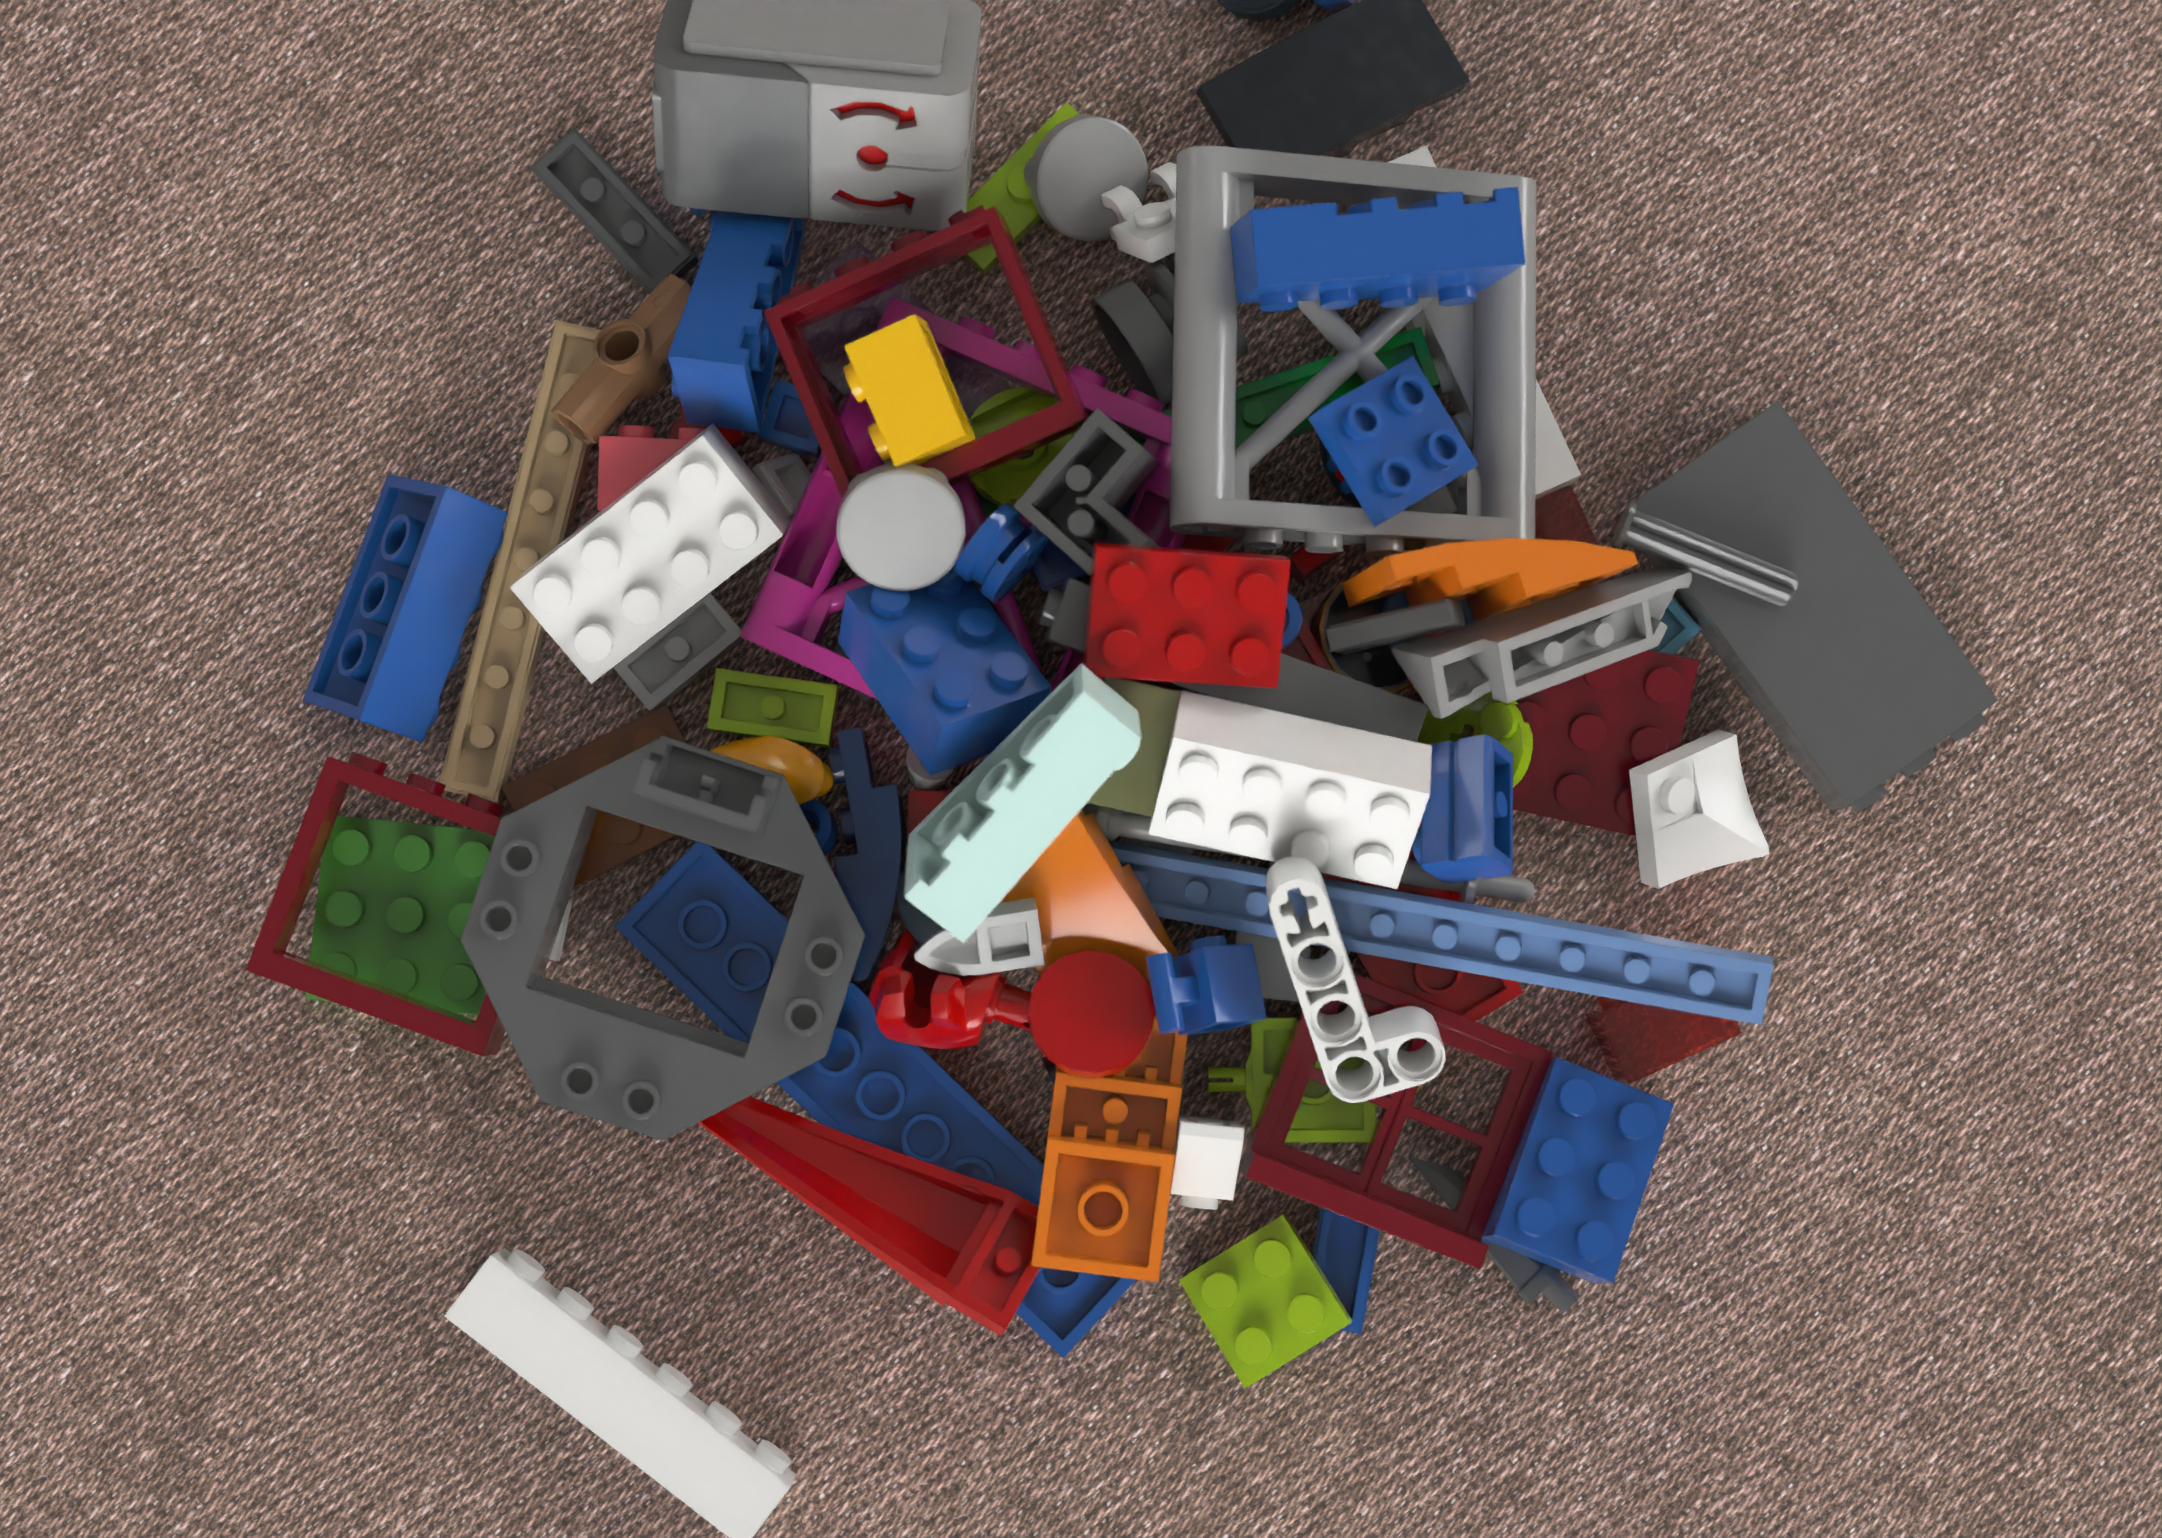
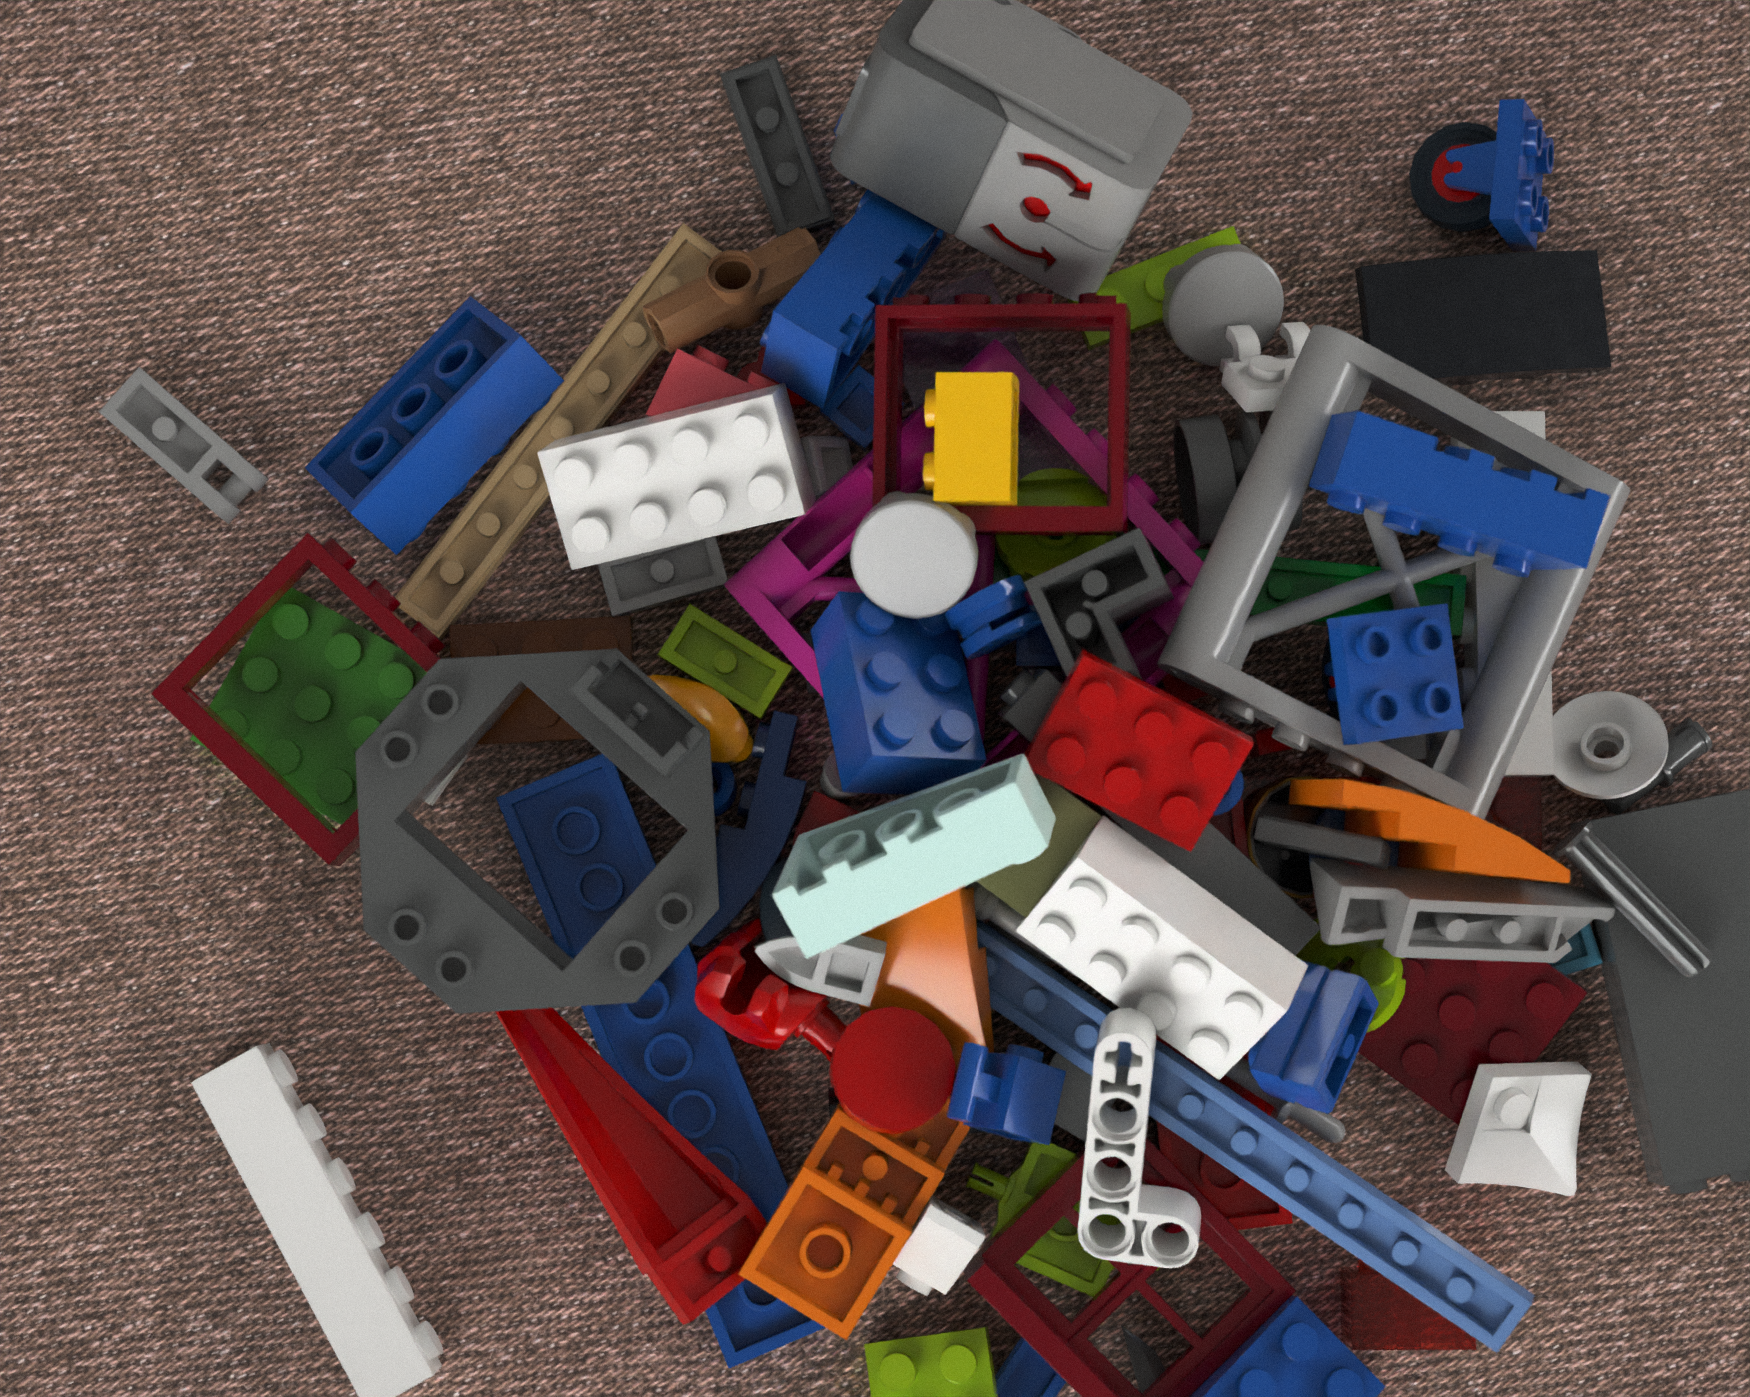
camera: 20 degrees right, 0 degrees up
(176, 727) = (181, 443): none -> light grey plate
(1615, 407) = (1613, 724): none -> white dish
(1670, 427) = (1686, 744): none -> dark grey axle

